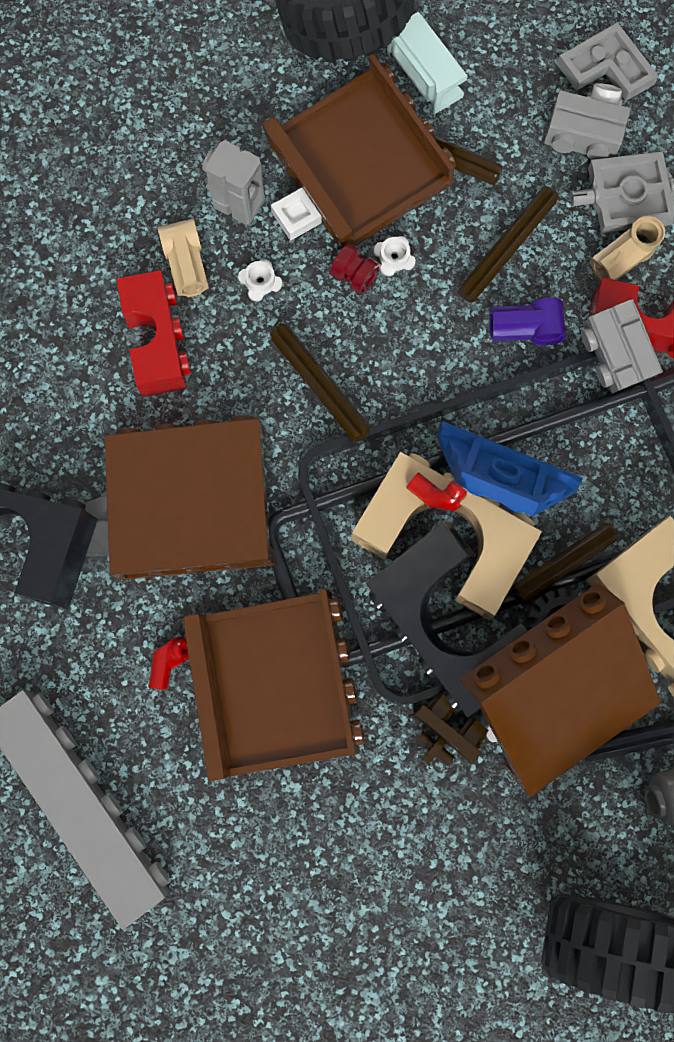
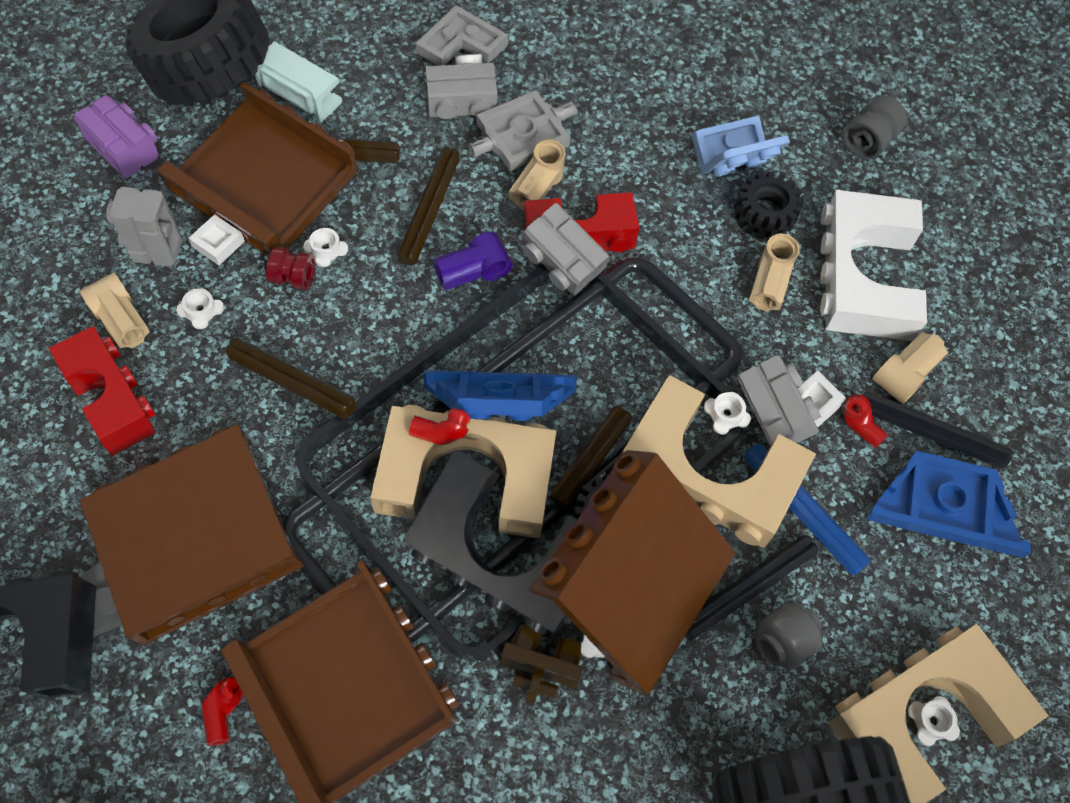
camera: 25 degrees left, 15 degrees down
(236, 68) = (117, 135): none -> medium lavender brick

